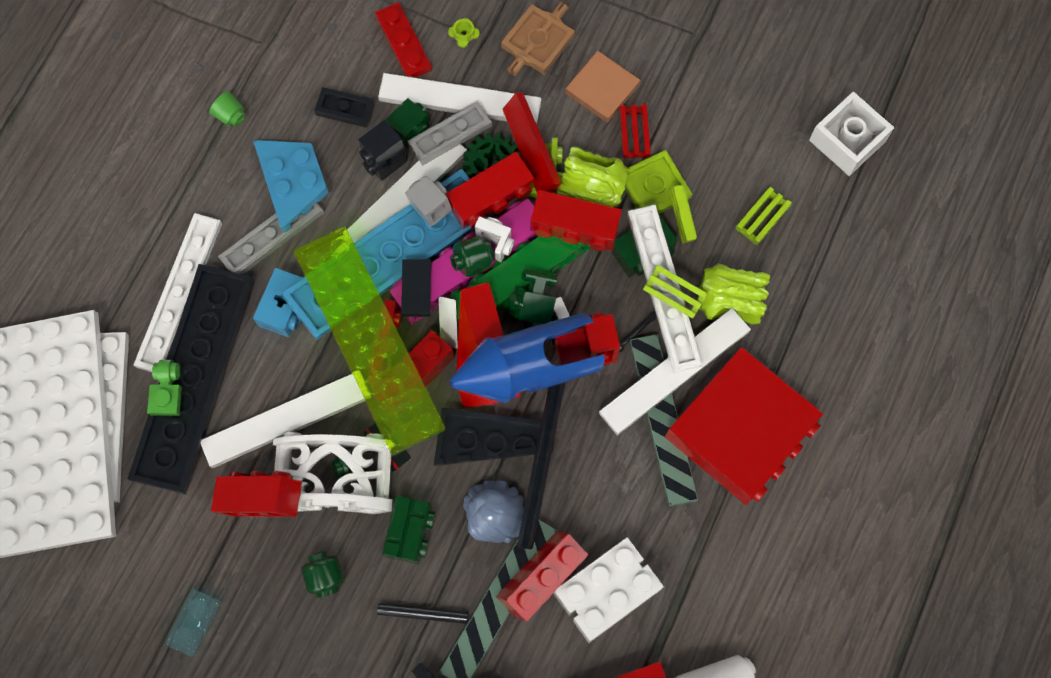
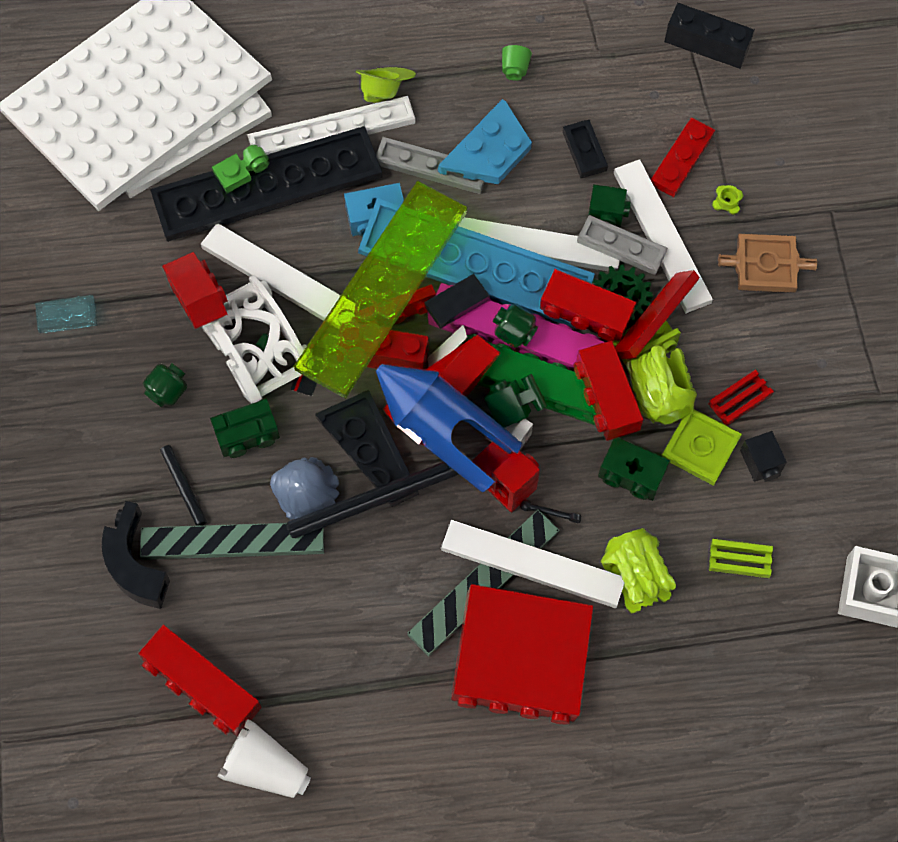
camera: 55 degrees right, 5 degrees down
(168, 223) = (383, 83): none -> lime piece
(382, 151) = (562, 199): black brick -> none
(429, 200) = (540, 260): light grey brick -> none
(497, 233) = (550, 339): white bracket -> none
(541, 576) = (272, 557): brick -> none
(602, 86) = (764, 345): nougat tile -> none
(608, 590) = (296, 623): white piece -> none
(673, 324) = (600, 506): white tile -> none
(682, 214) = (686, 482): lime tile -> none
(696, 146) = (763, 457): none -> black brick
(696, 303) = (598, 486): lime tile -> none

